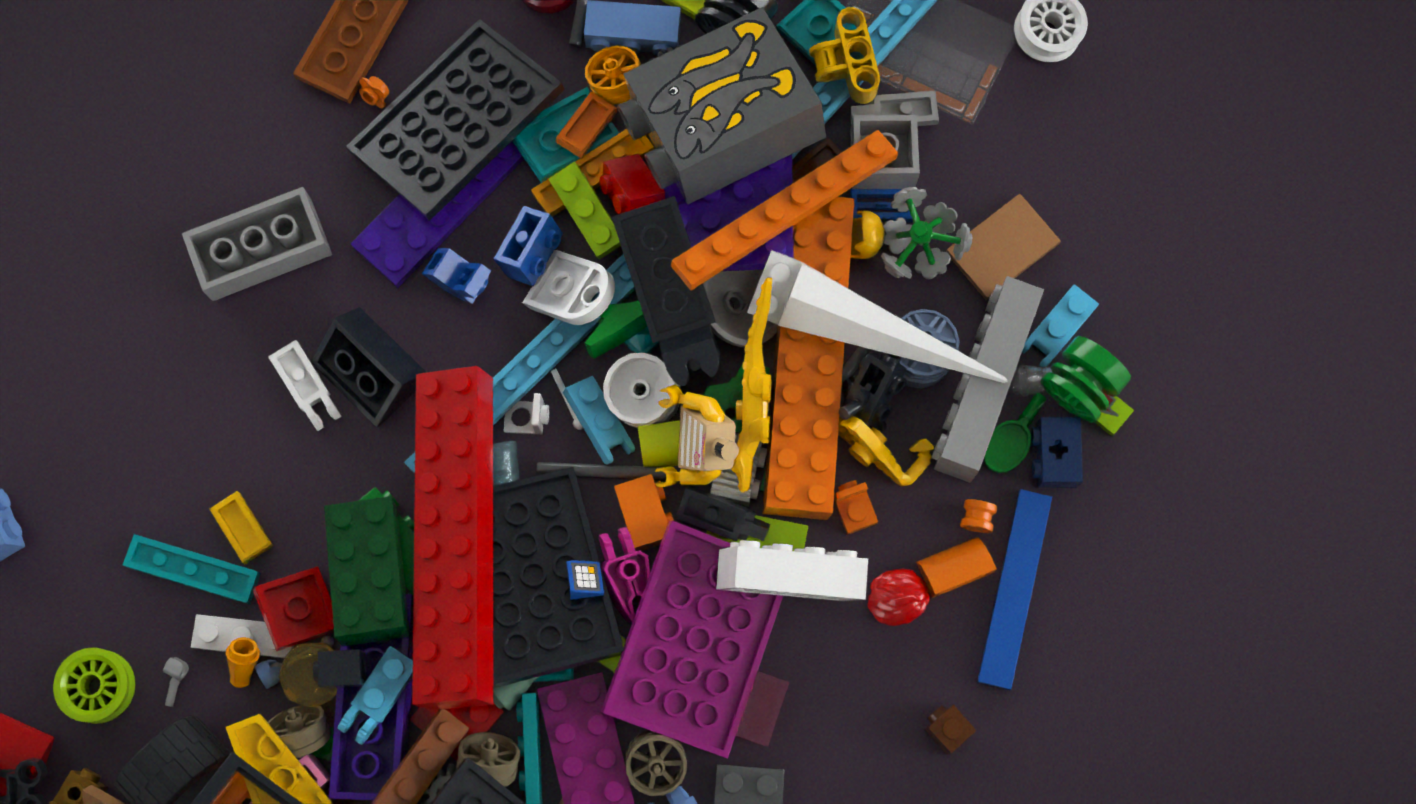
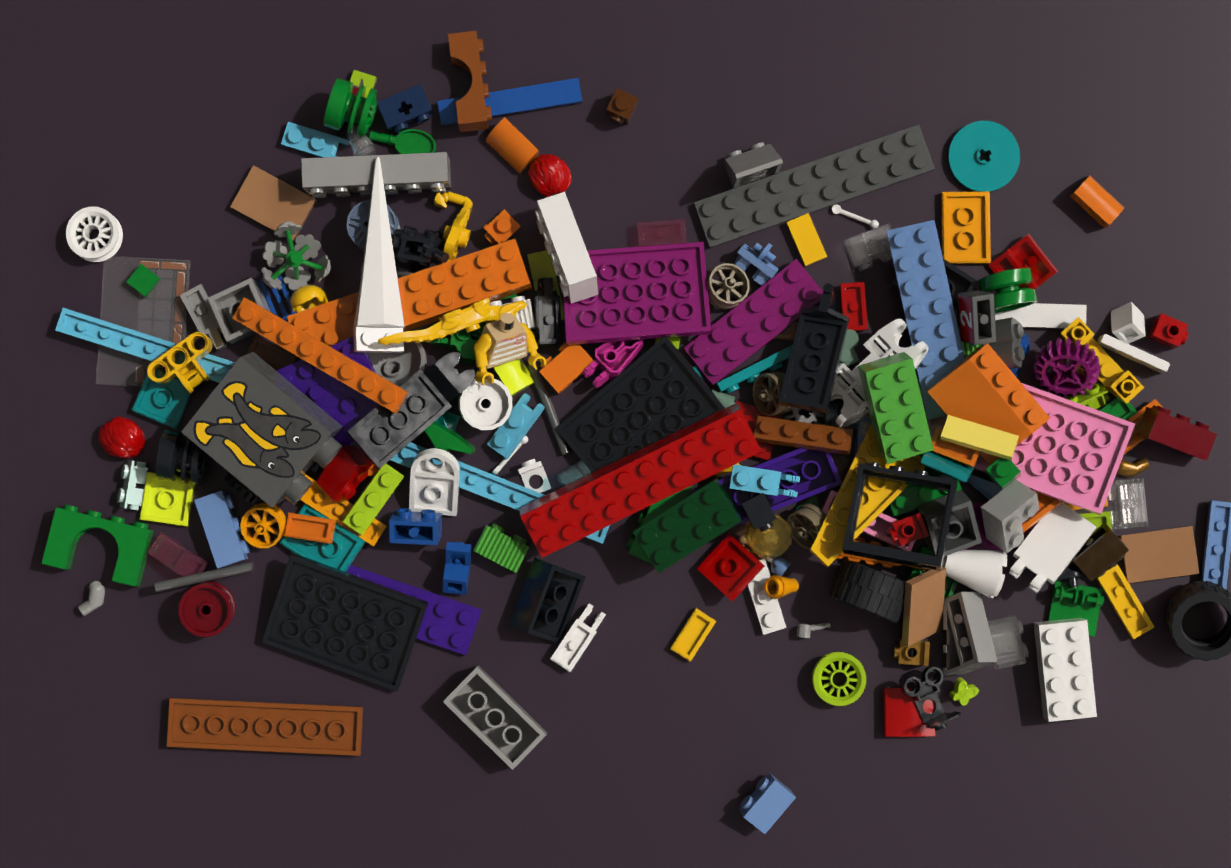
camera: 115 degrees left, 10 degrees up
(191, 569) = (735, 652): teal plate -> none
(373, 91) = (348, 692): orange plate -> none
(457, 338) = (502, 548): none -> bright green brick
(584, 579) = (630, 382): slope -> none
(971, 59) = (143, 280): none -> green tile
(978, 516) = (472, 144): orange wheel -> none
(1023, 533) = (472, 108): none -> dark orange arch

